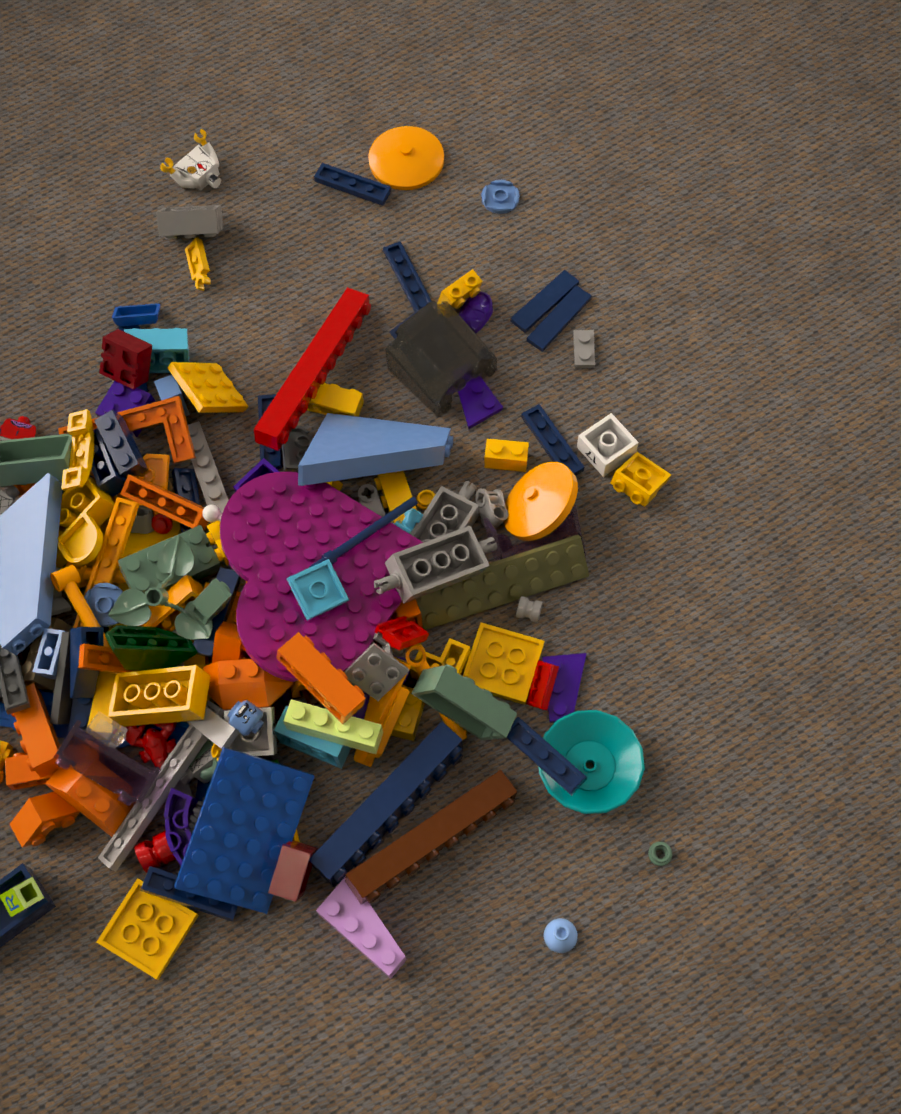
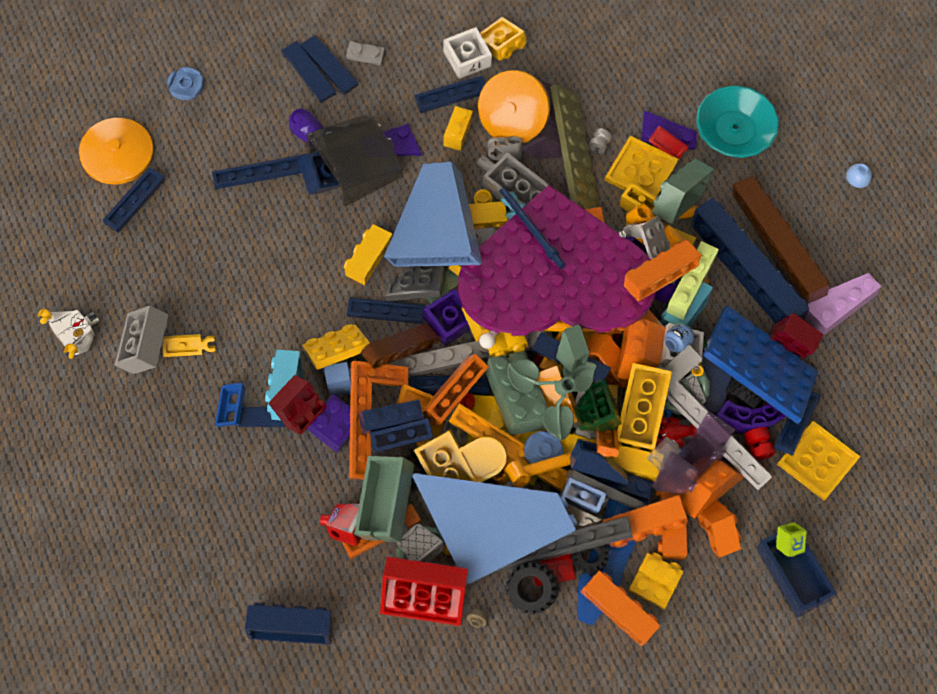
camera: 85 degrees left, 0 degrees up
(82, 450) = (393, 447): yellow slope -> none
(211, 440) = (400, 345): none -> reddish brown beam
(312, 370) = (341, 255): red brick -> none
(318, 589) = (582, 263): medium azure plate -> none
(401, 633) = (623, 216): red plate -> none
(436, 564) = (570, 180): light grey brick -> none
(464, 287) = (290, 129): yellow plate -> none
(545, 756) = (733, 146): dark blue tile -> none
(667, 853) = (809, 93): sand green plate -> none

